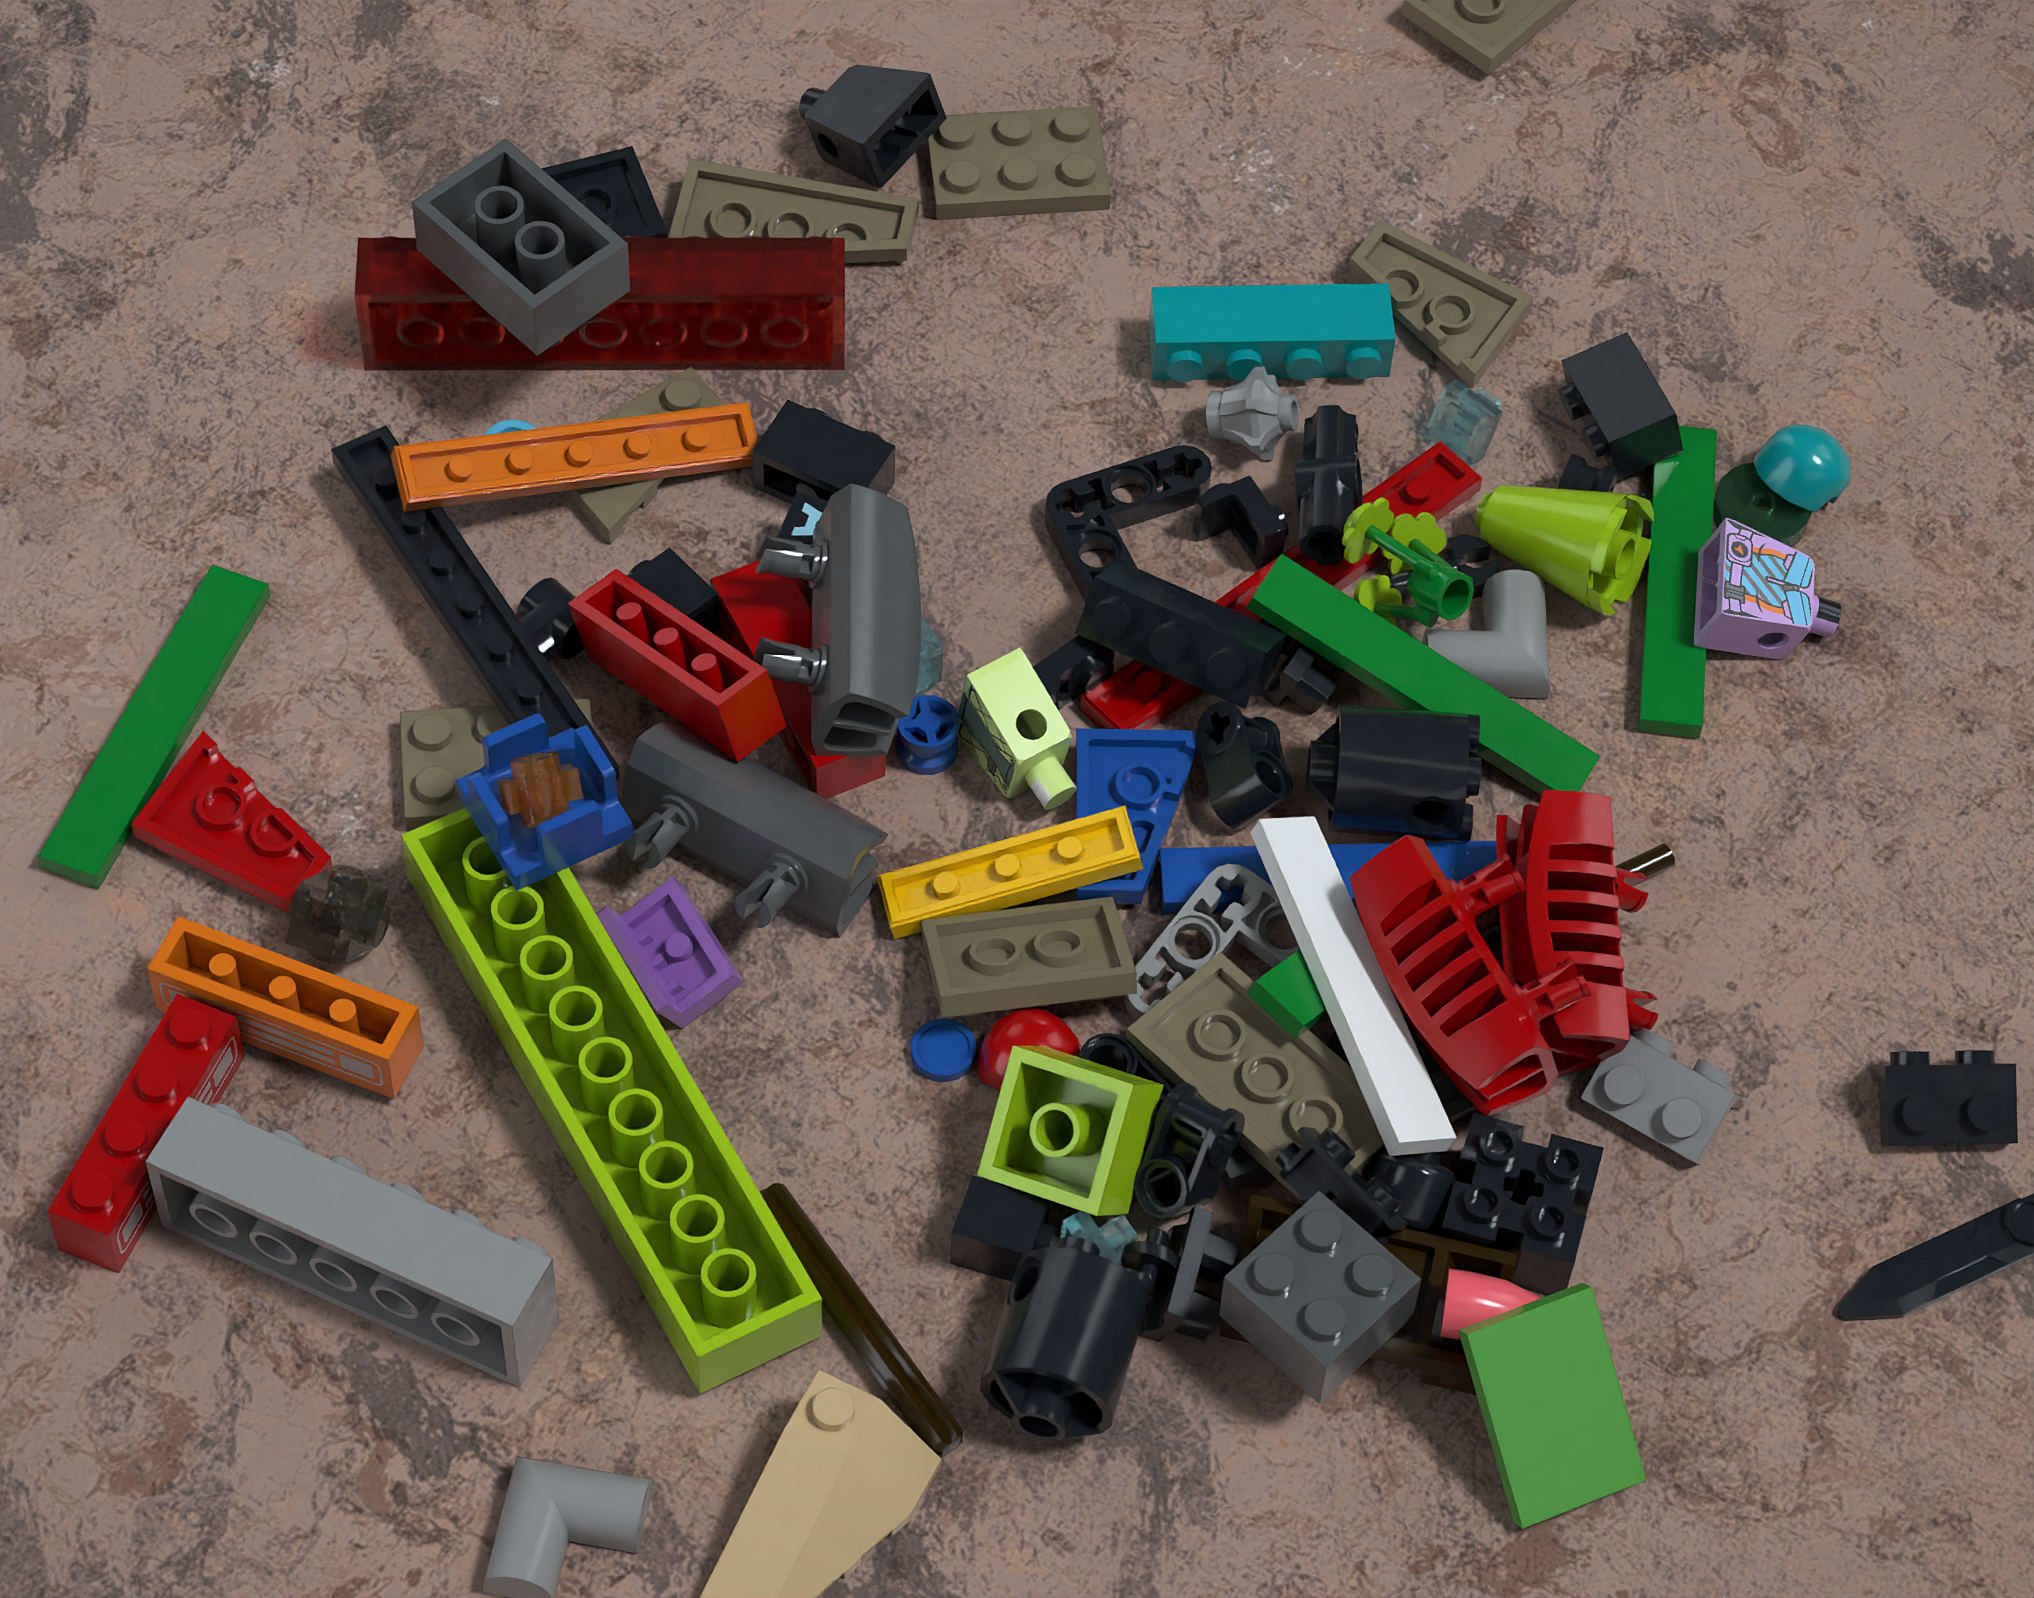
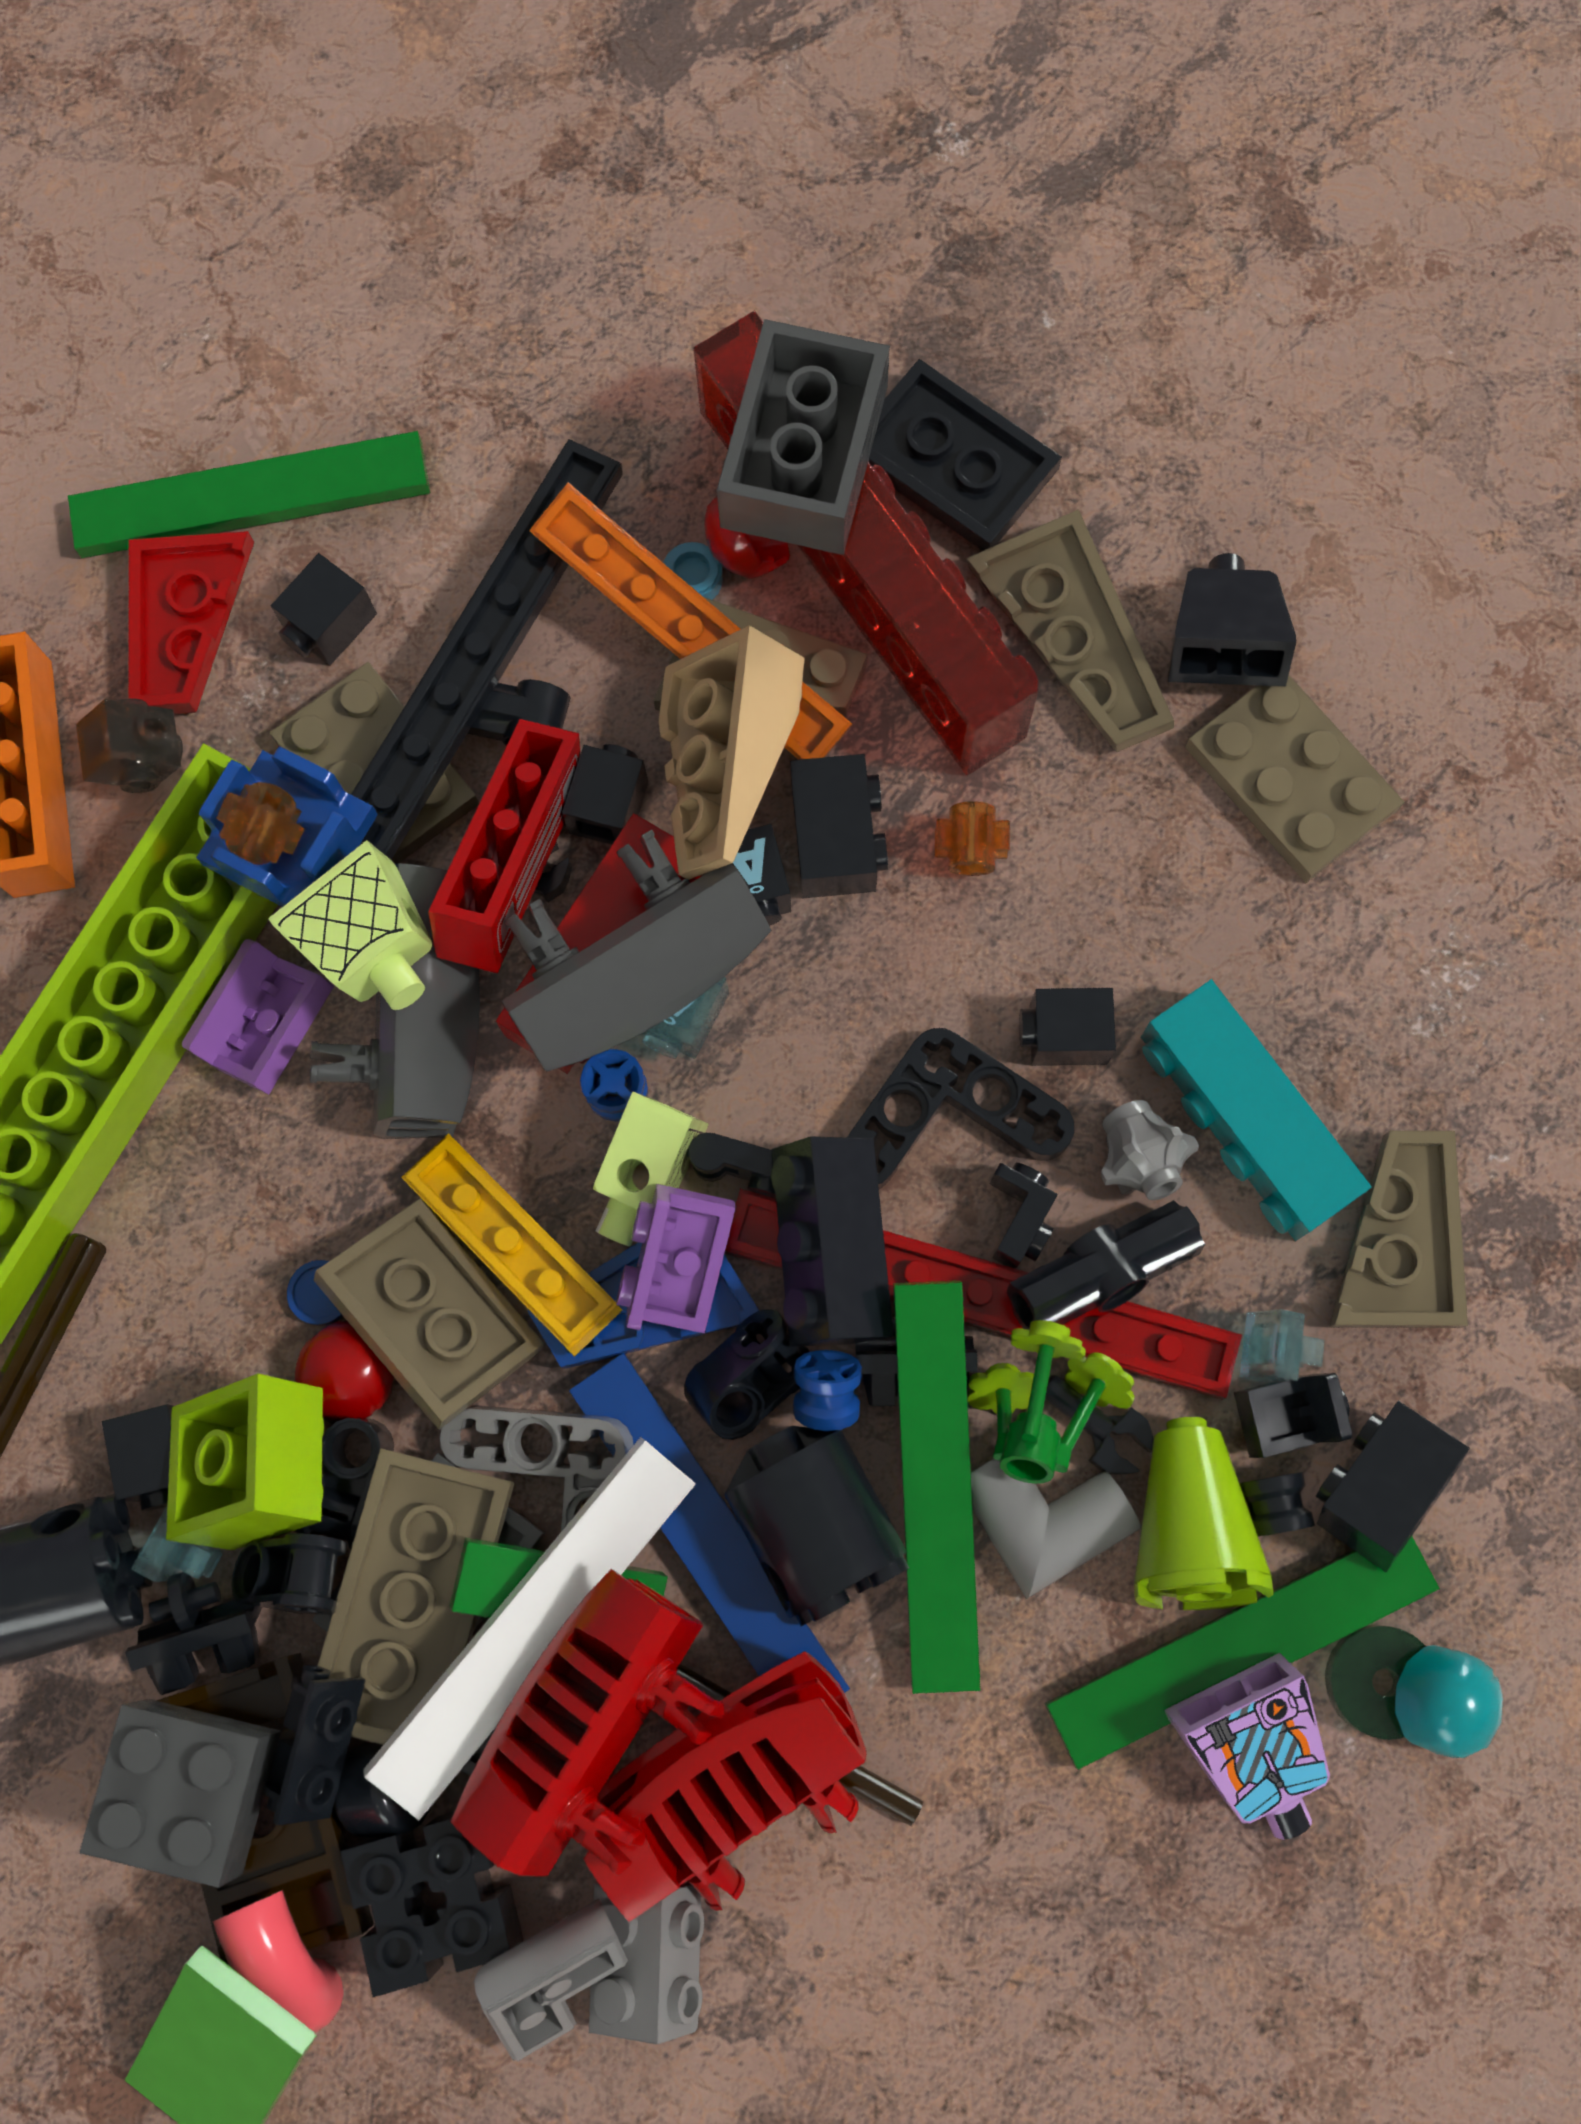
camera: 65 degrees right, 20 degrees up
(326, 715) = (322, 610): none -> black brick
(517, 388) = (742, 552): none -> red hair
(686, 779) = (360, 928): none -> yellowish green torso
(715, 464) = (726, 729): none -> tan wedge
(910, 381) = (972, 838): none -> clear orange gear
(1116, 406) = (1069, 1026): none -> black brick
(1120, 737) = (678, 1259): none -> medium lavender bracket
(1297, 704) = (827, 1390): none -> blue wheel
(1526, 436) = (1293, 1414): none -> black bracket
(1634, 1139) = (529, 1984): none -> light grey brick

